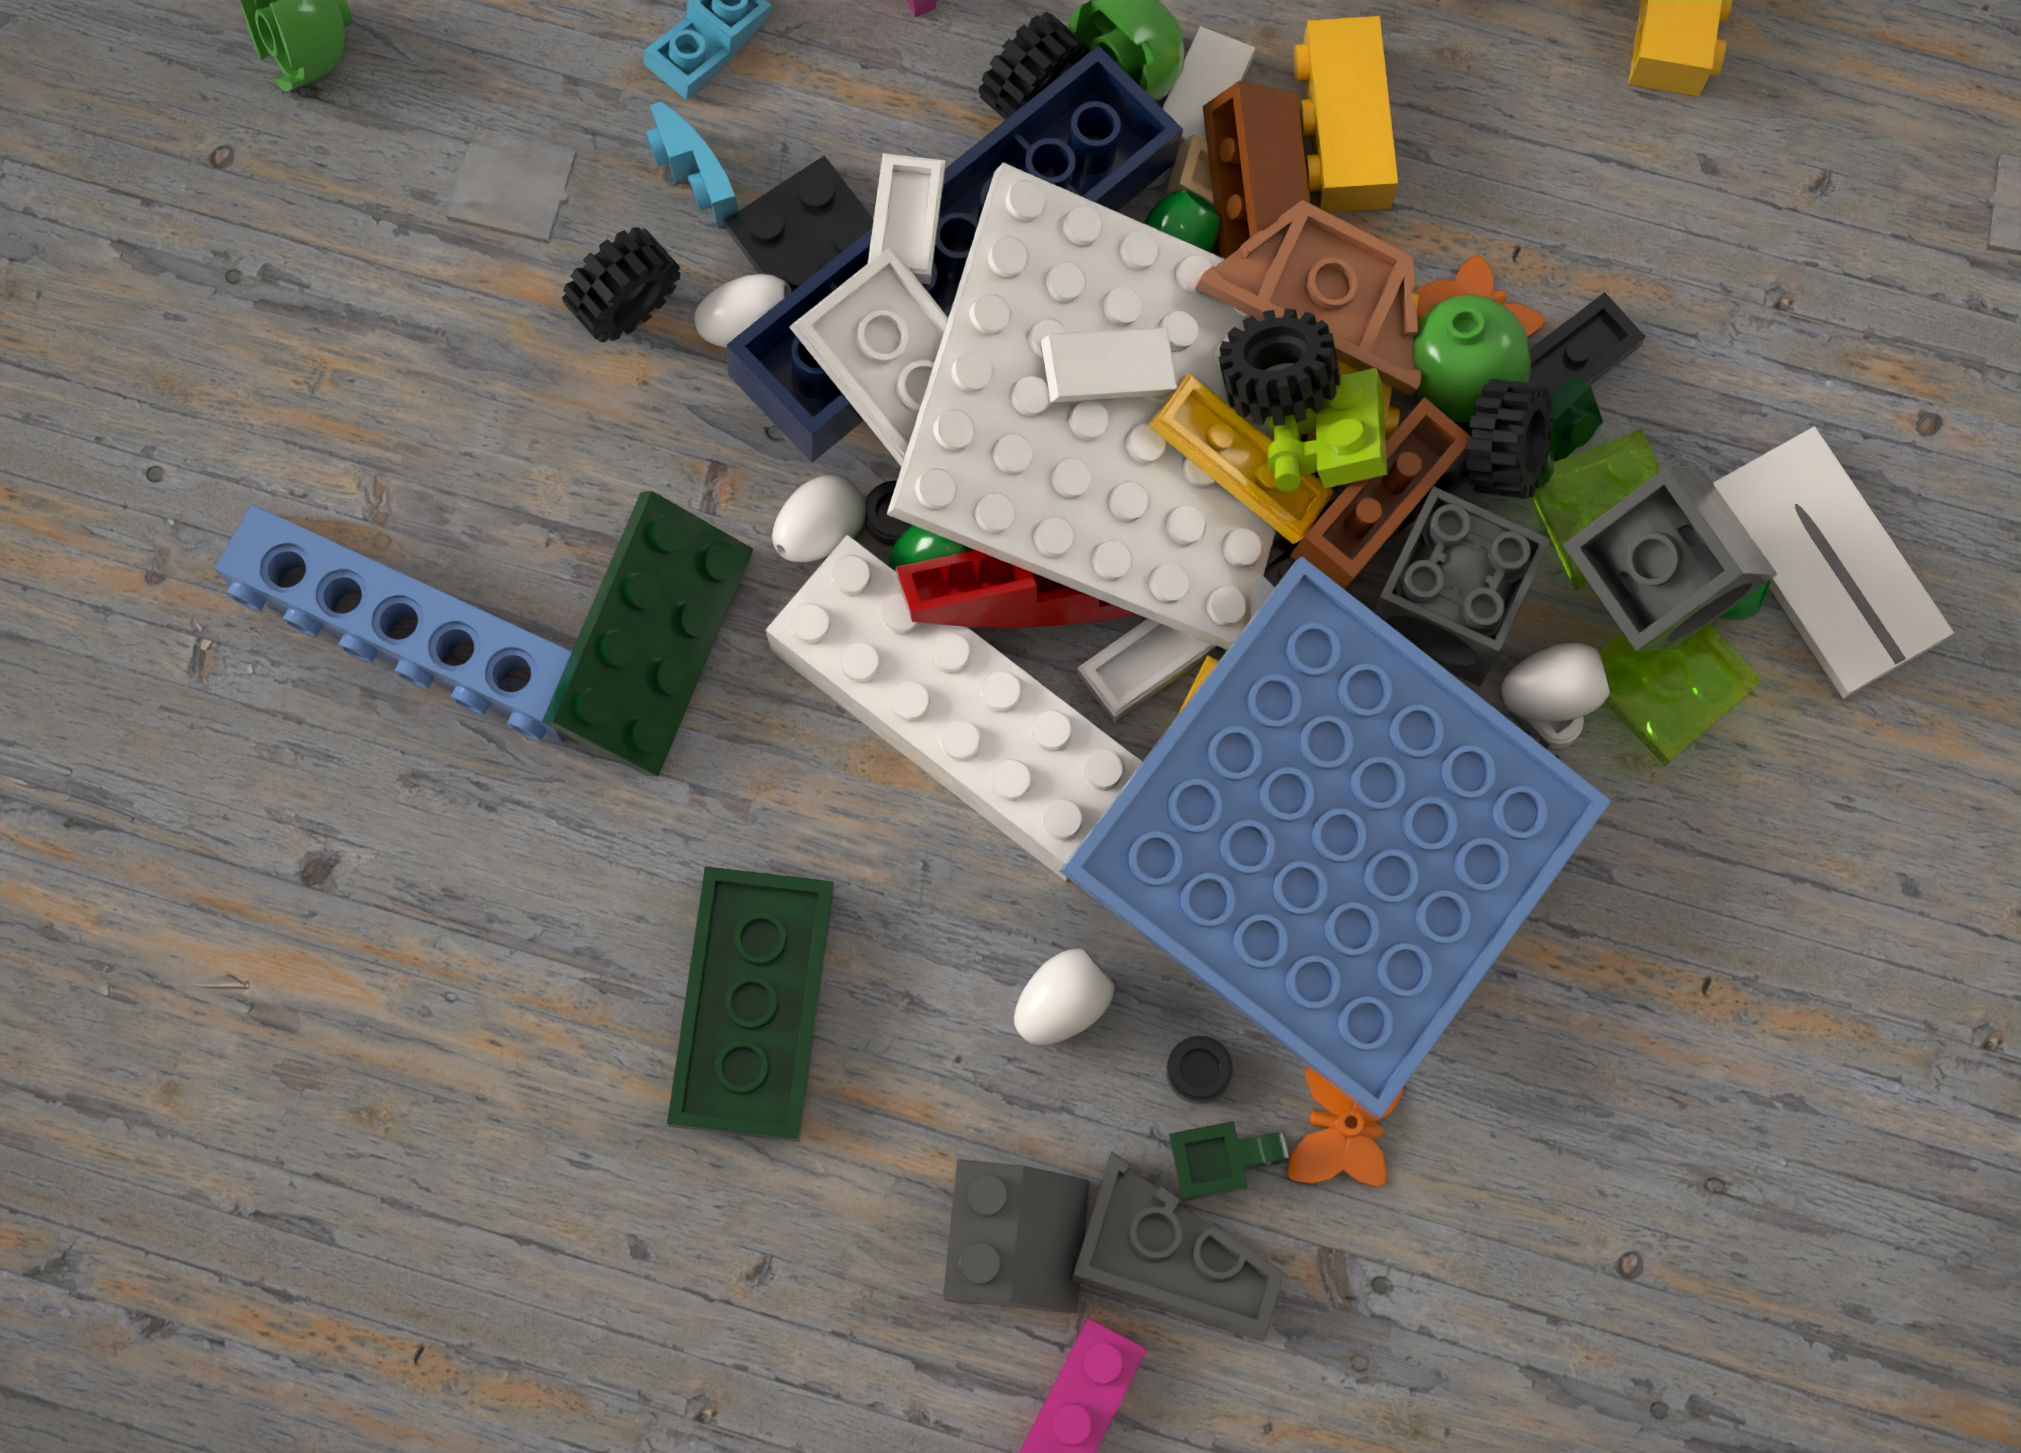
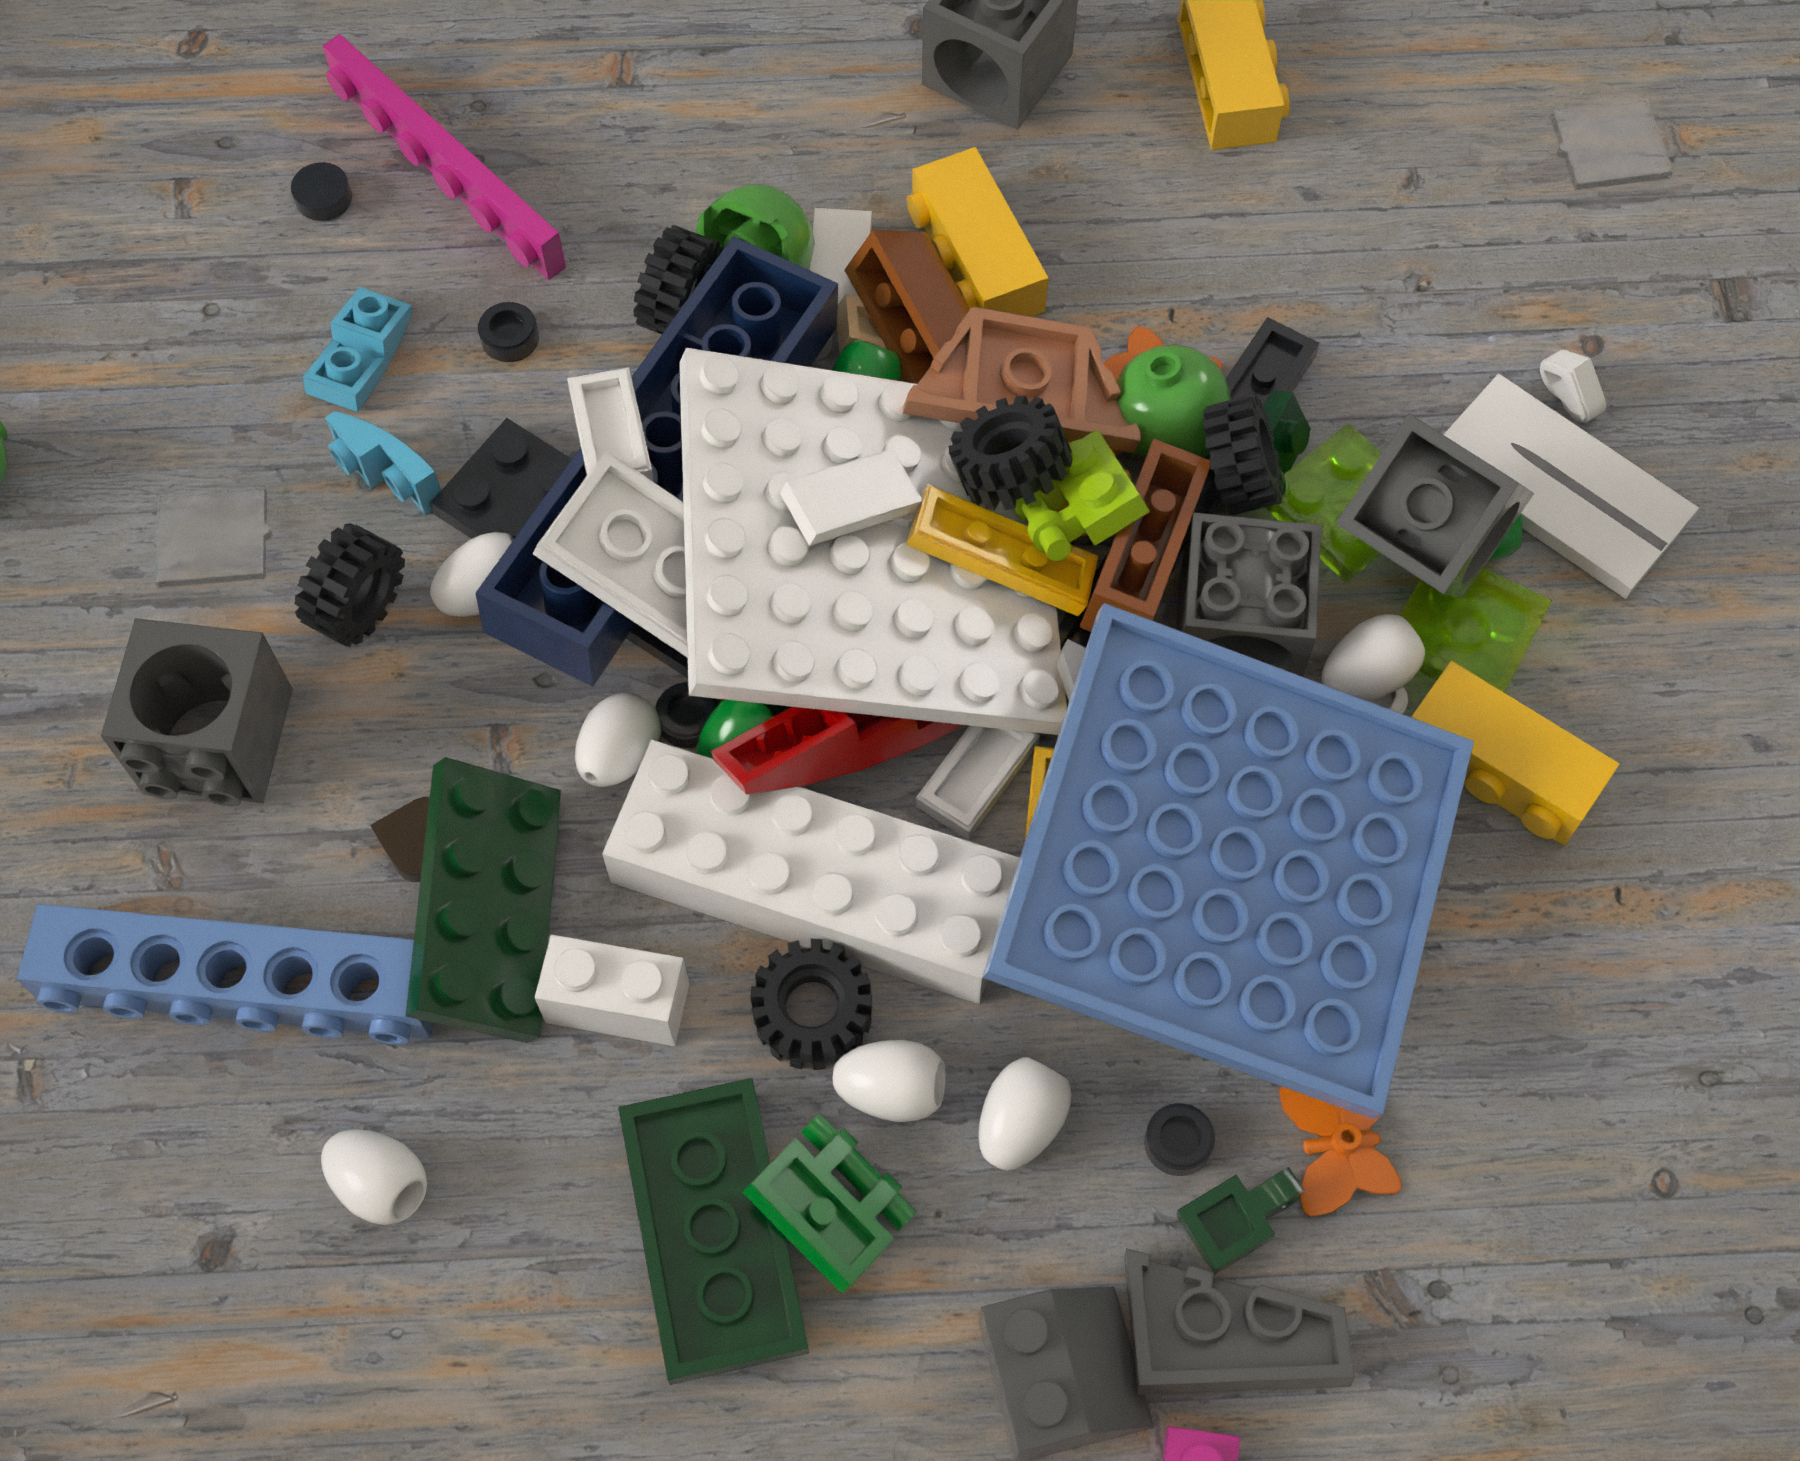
camera: 20 degrees left, 10 degrees down
(431, 319) = (176, 669): none -> dark grey brick
(472, 853) = (374, 1175): none -> white animal
(596, 544) = (404, 837): none -> dark brown tile
(736, 757) = (612, 990): none -> white brick
(848, 1026) = (820, 1213): none -> green plate
(856, 62) = (508, 332): none -> black tile
(911, 793) = (804, 966): none -> black tyre
(957, 926) = (891, 1080): none -> white animal
(1657, 818) = (1518, 754): none -> yellow brick
(1886, 463) = (1575, 384): none -> white tile

